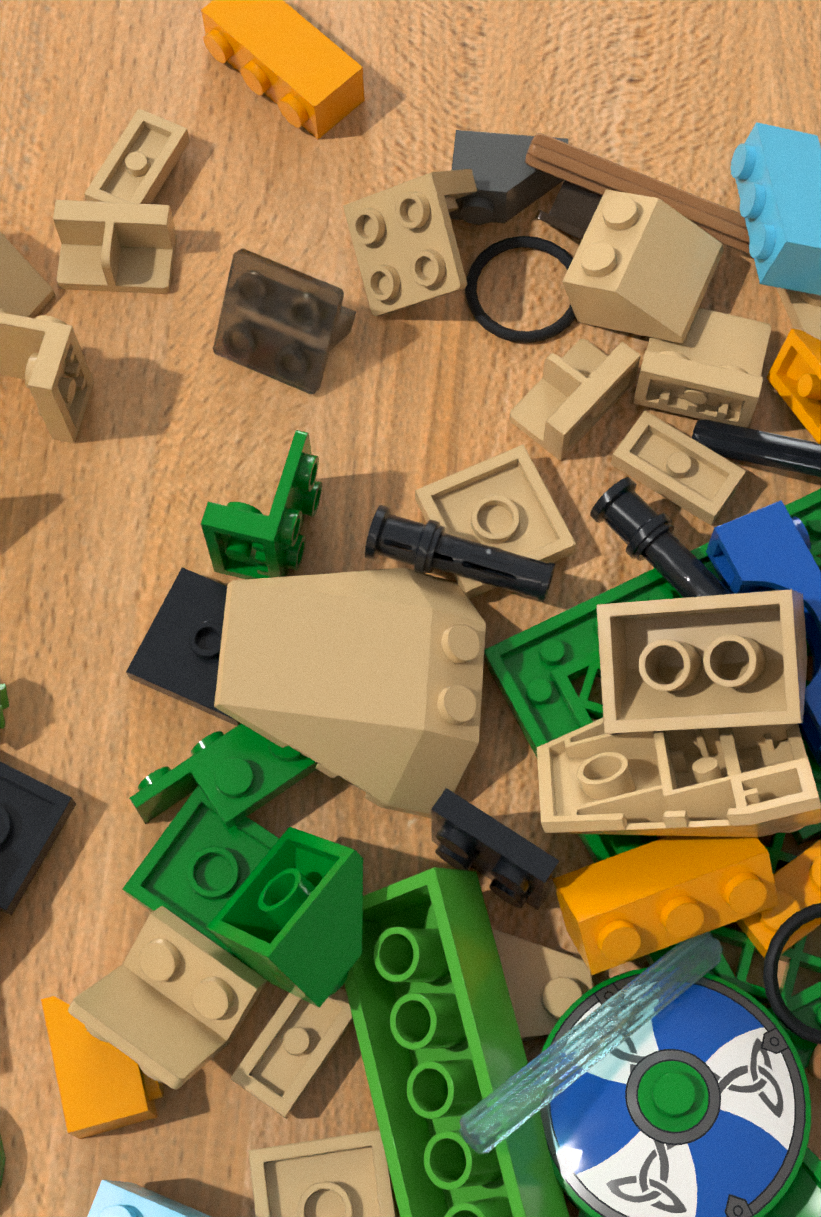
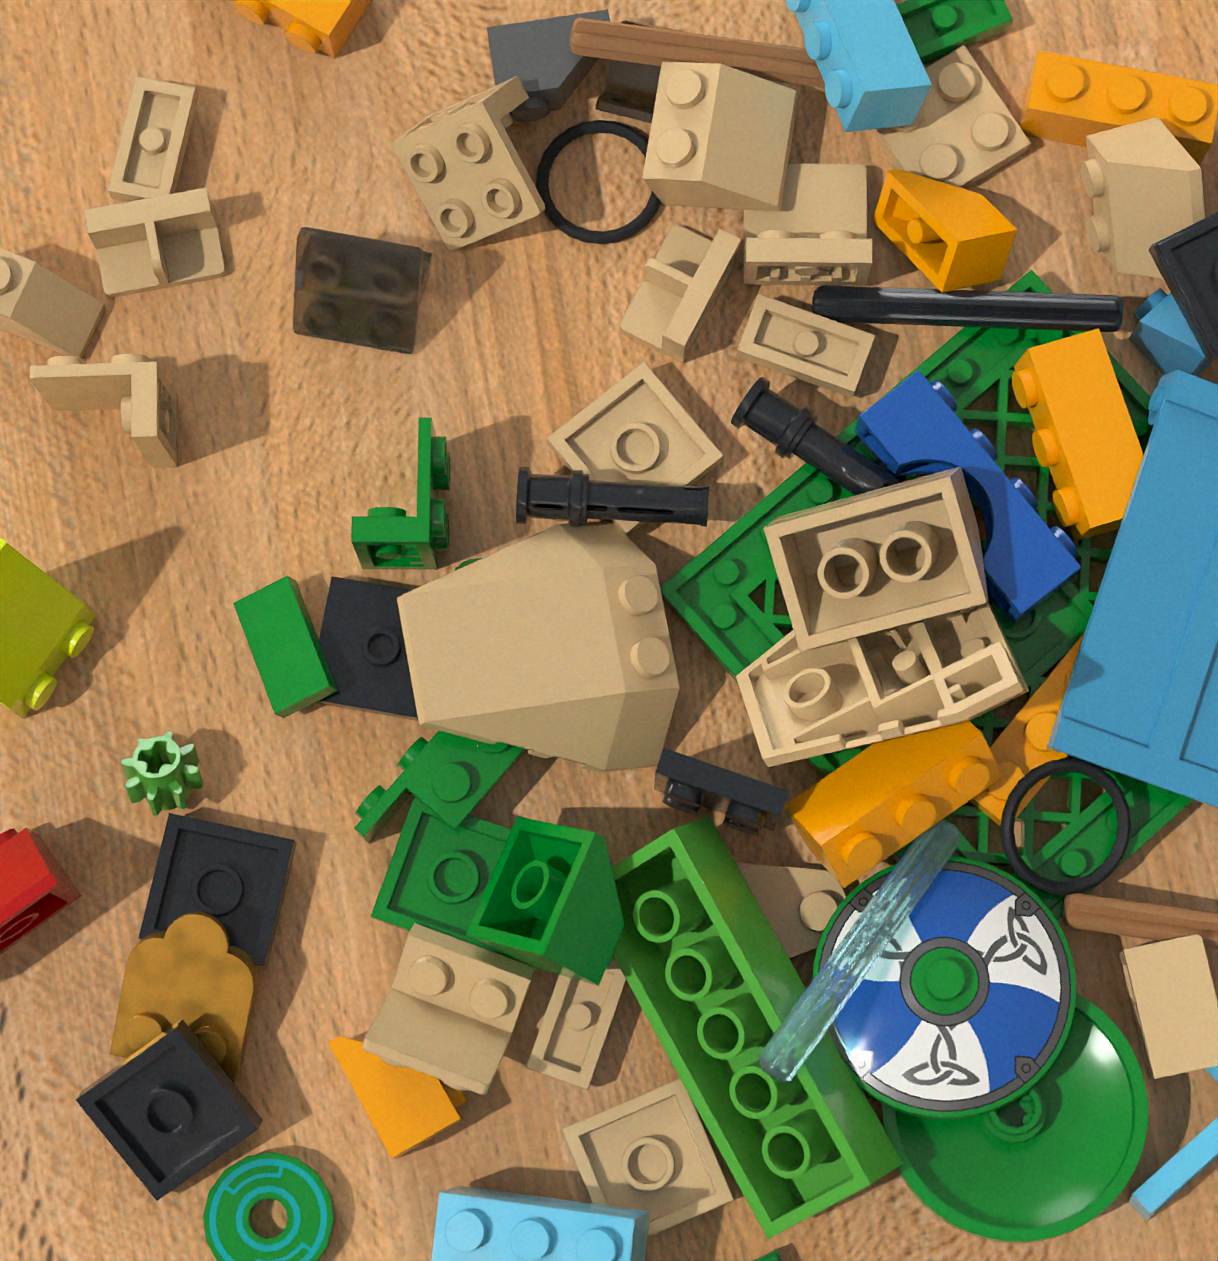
camera: 15 degrees left, 10 degrees up
(119, 620) = (285, 647): none -> green tile

